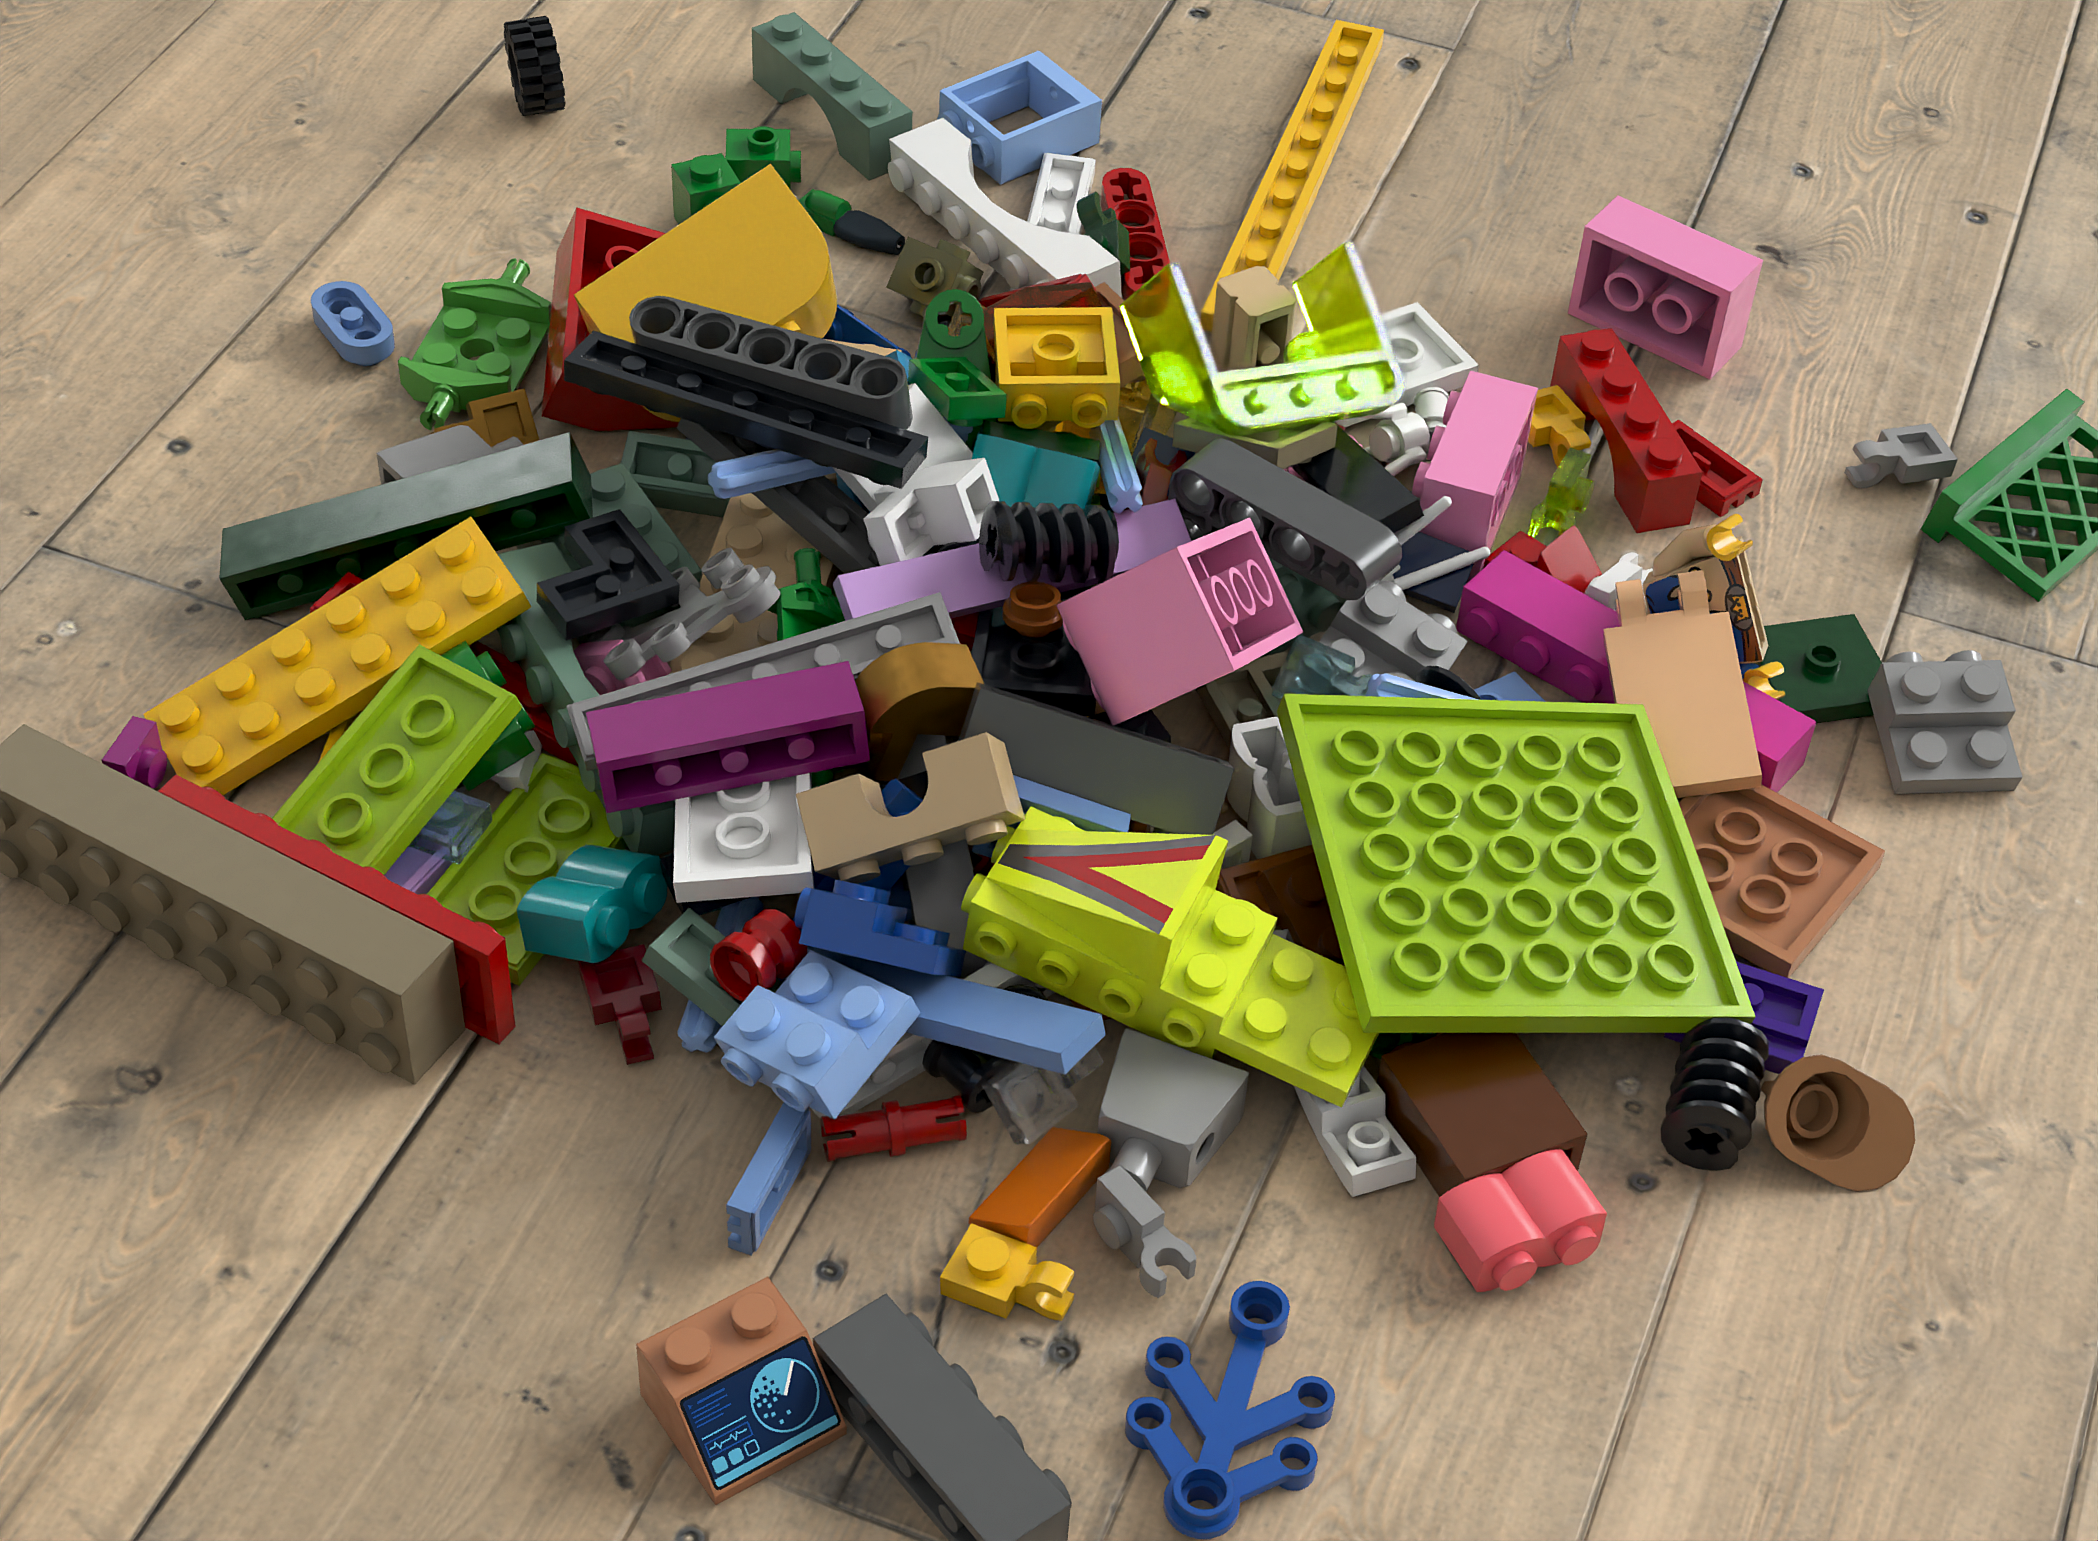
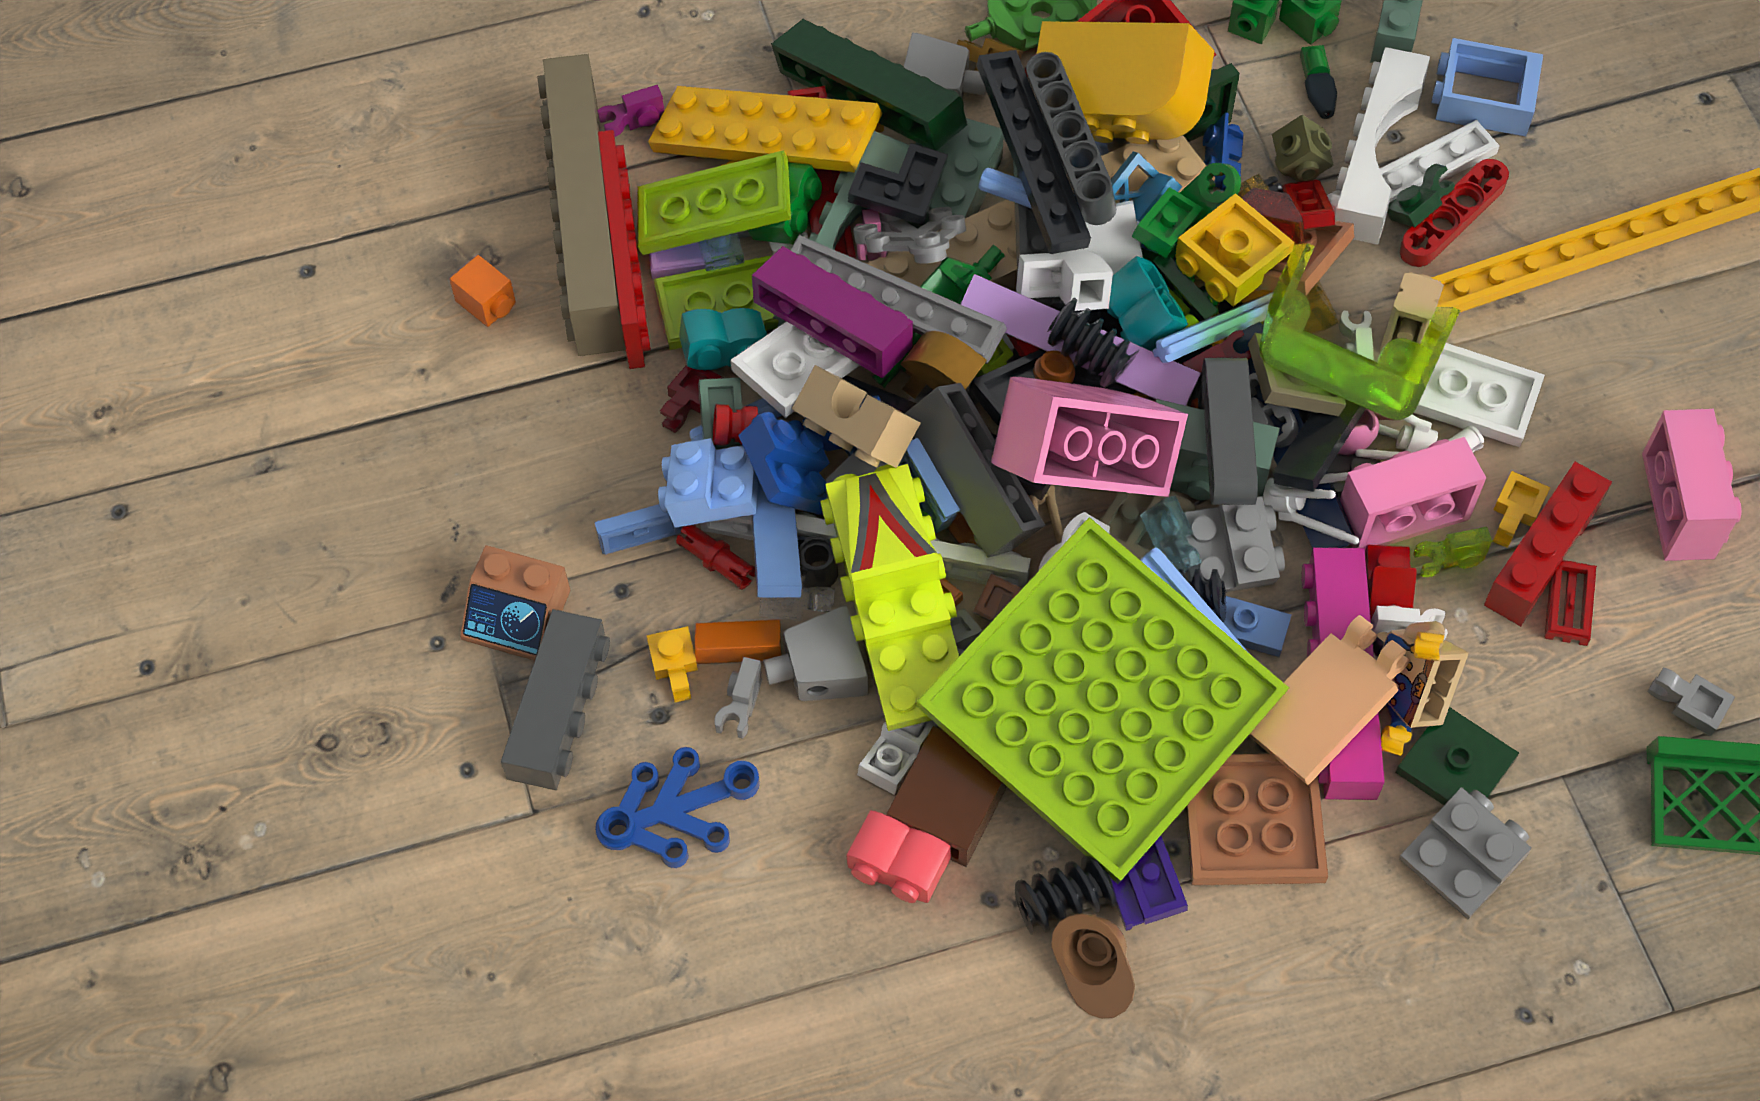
camera: 55 degrees right, 15 degrees up
(202, 1107) = (483, 291): none -> orange brick

